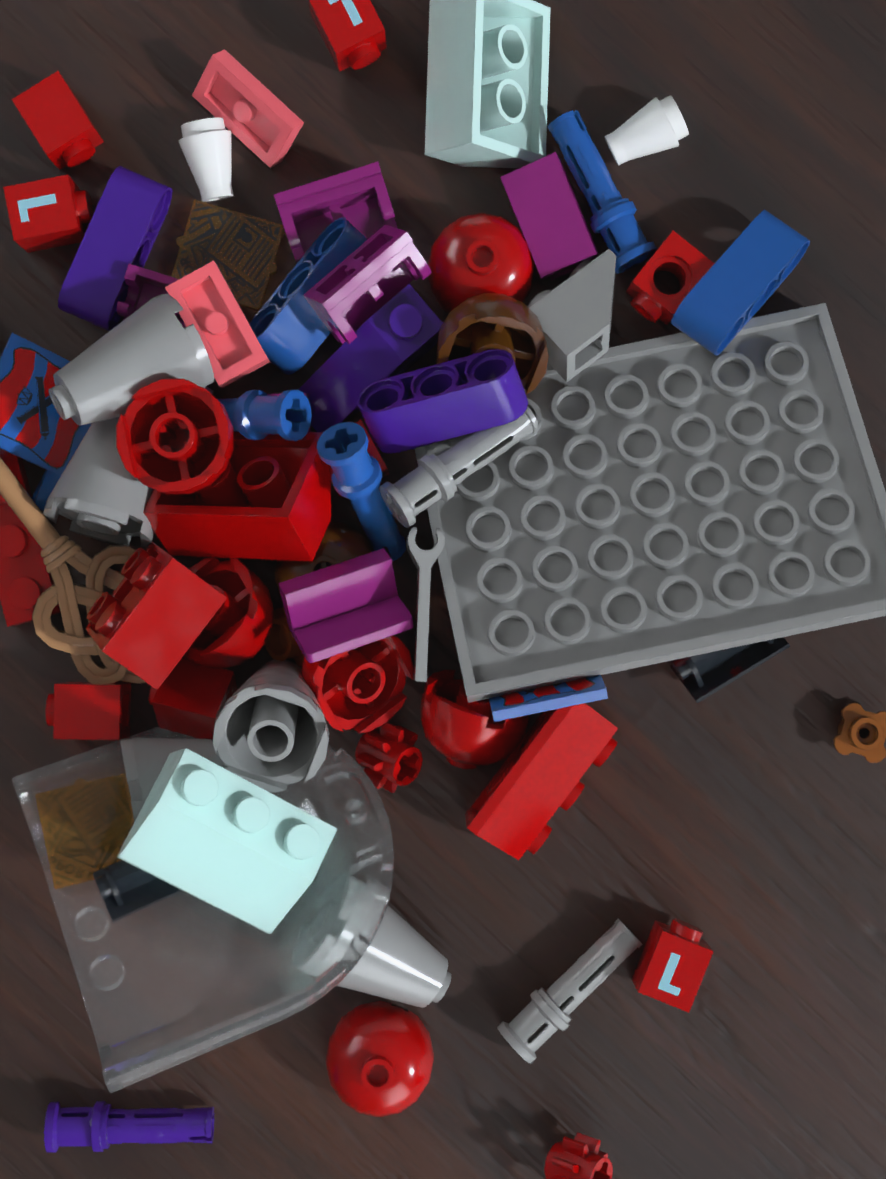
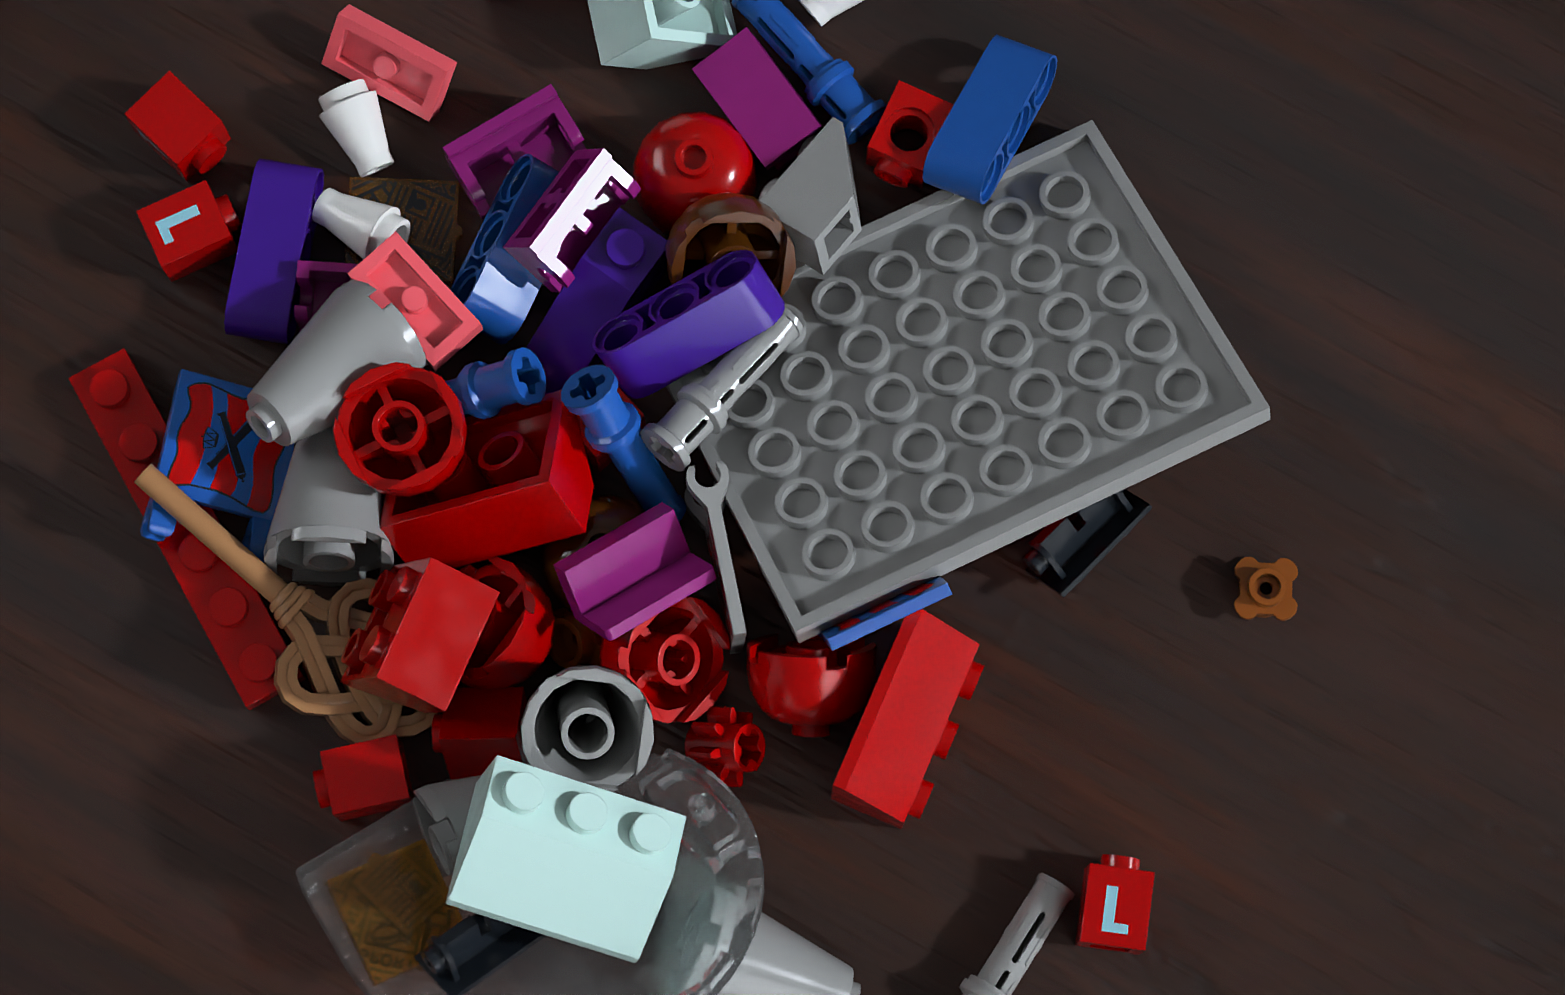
camera: 10 degrees left, 10 degrees down
(191, 241) = (359, 221): none -> white cone

